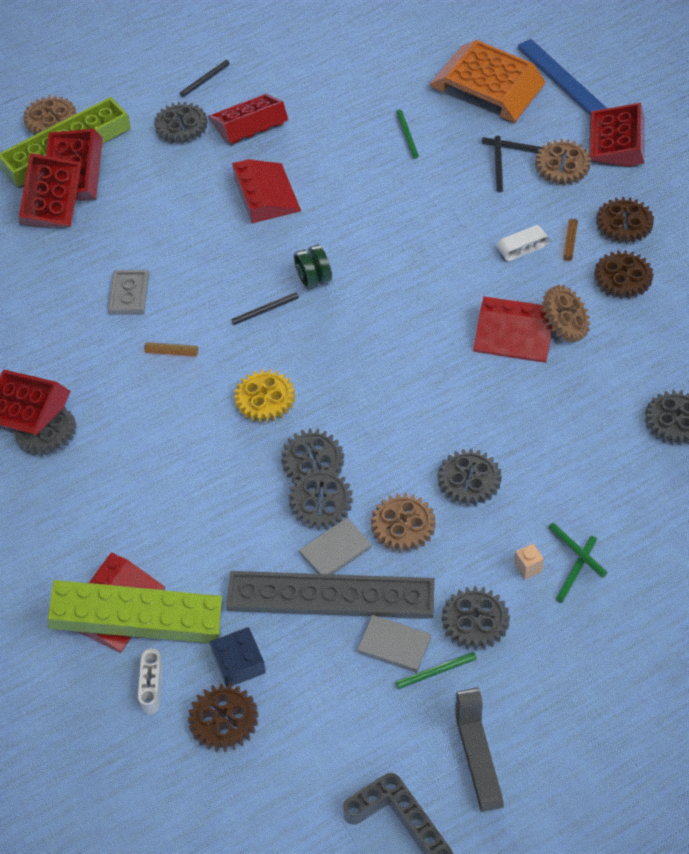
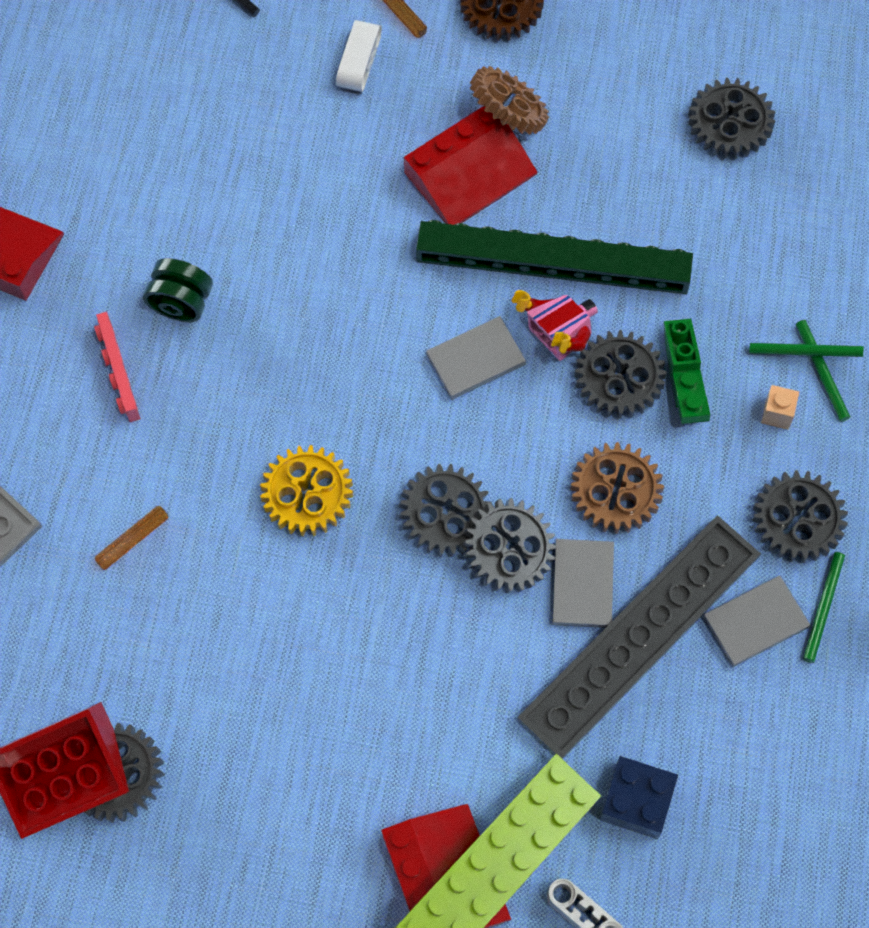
camera: 50 degrees left, 15 degrees up
(209, 730) = (706, 900): reddish brown gear -> none
(251, 278) = (119, 377): none -> coral plate
(262, 309) = (174, 389): black bar -> none
(407, 134) = (70, 30): green bar -> none
(412, 412) = (475, 357): none -> light grey tile
(467, 428) = (558, 321): none -> torso
(503, 505) = (685, 371): none -> green slope
(506, 403) = (554, 257): none -> dark green brick

